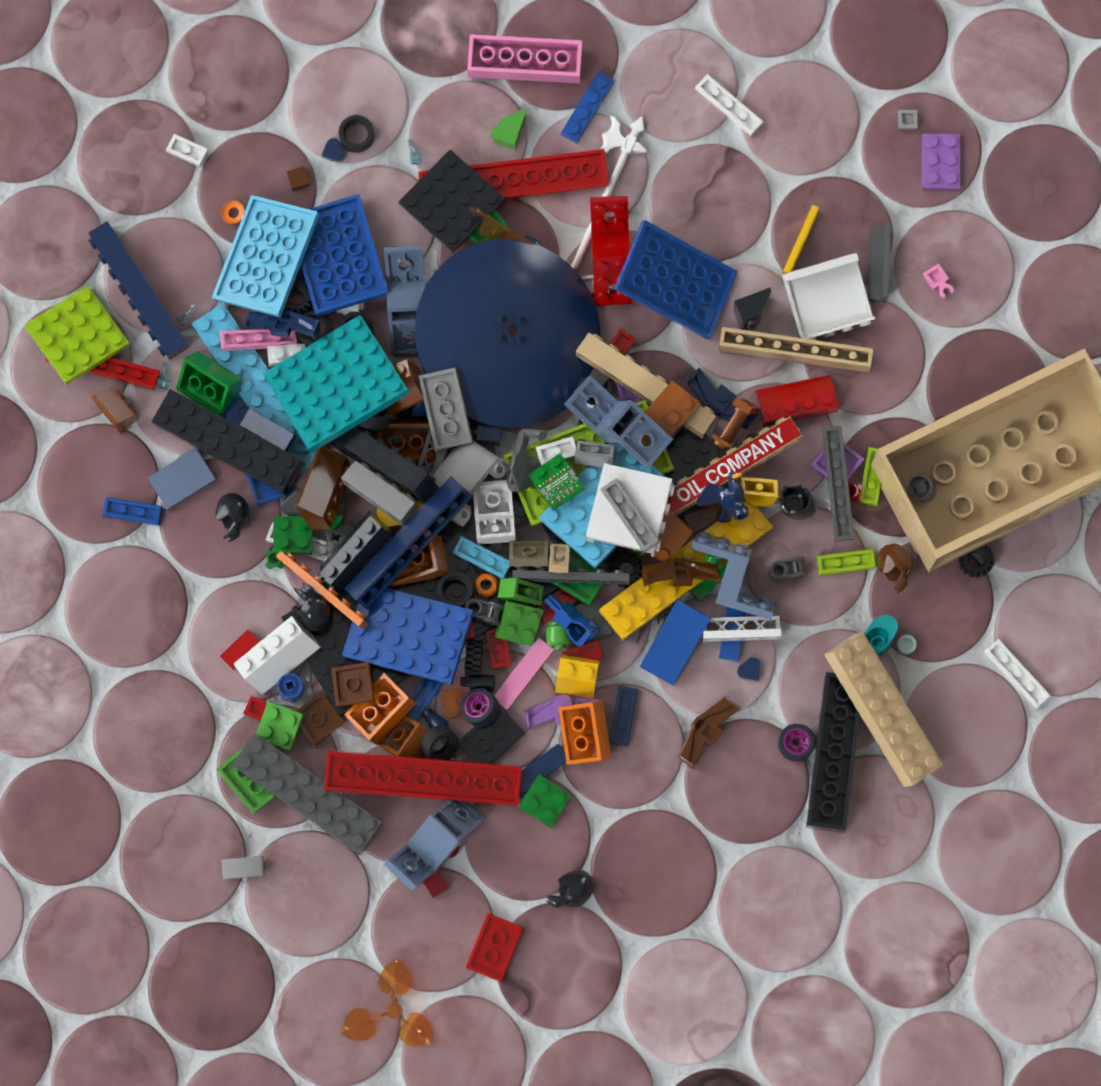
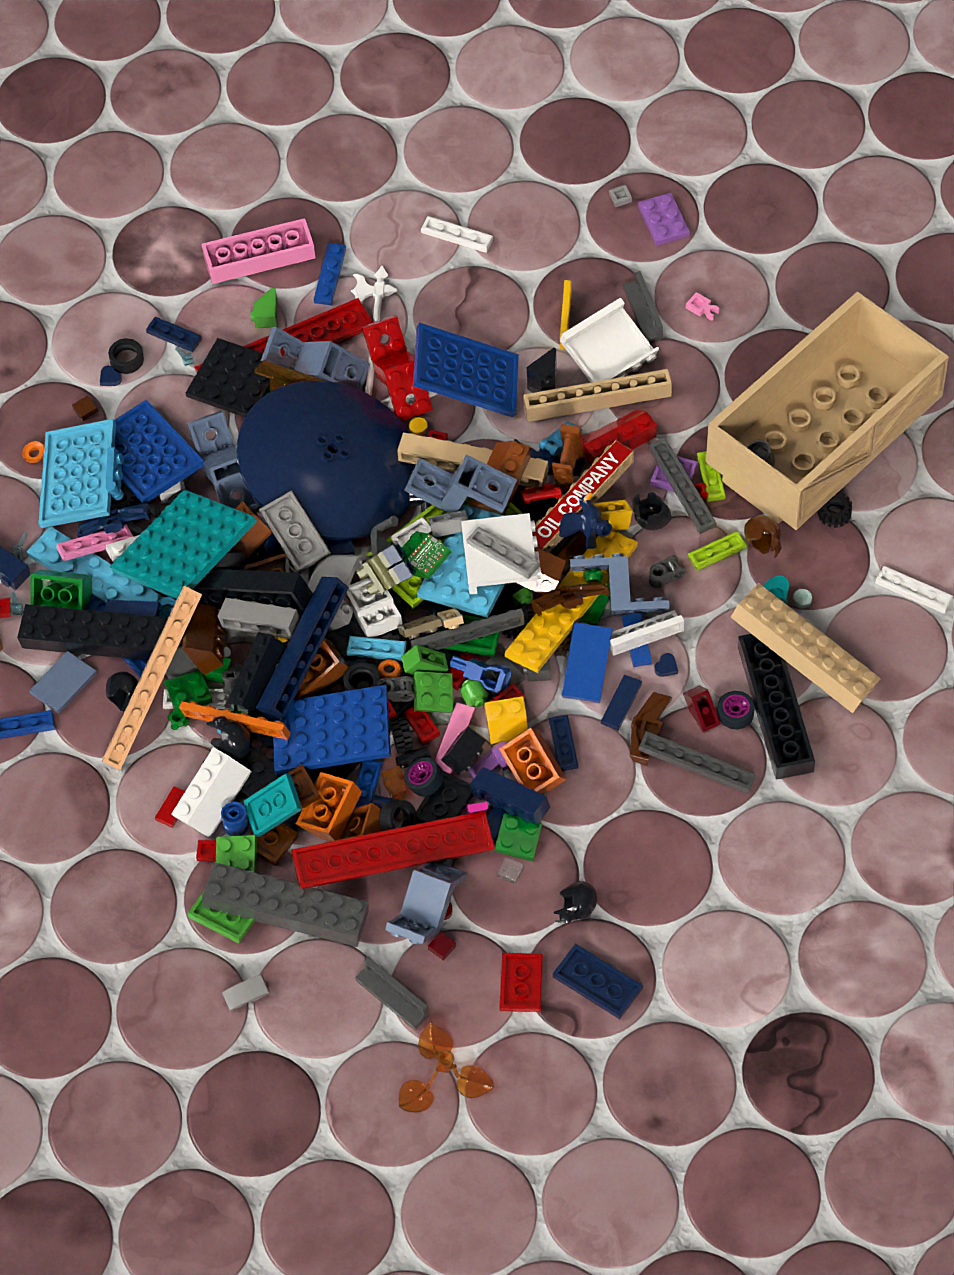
camera: 20 degrees left, 20 degrees down
(260, 517) = (151, 678): none -> light nougat plate
(298, 274) = (114, 473): none -> dark azure plate
(327, 693) = (272, 805): none -> teal plate
(372, 918) = (392, 994): none -> dark grey fence
(411, 123) = (173, 334): none -> dark blue tile
(515, 489) = (381, 573): none -> hips
(515, 760) = (473, 808): none -> dark pink tile
(525, 694) = (463, 750): none -> black brick
(525, 832) = (510, 870): none -> clear plate
(533, 216) = (317, 359): none -> sand blue bracket
(550, 759) = (510, 796): none -> dark blue brick
(562, 973) = (597, 981): none -> dark blue plate
(611, 317) = (418, 426): none -> yellow tile
(693, 693) = (621, 702): none -> dark blue tile
(695, 447) = (547, 490): none -> red plate
(737, 786) = (697, 762): none -> dark grey plate
(742, 384) = (554, 442): none -> dark azure plate
(765, 729) = (702, 707): none -> dark red slope

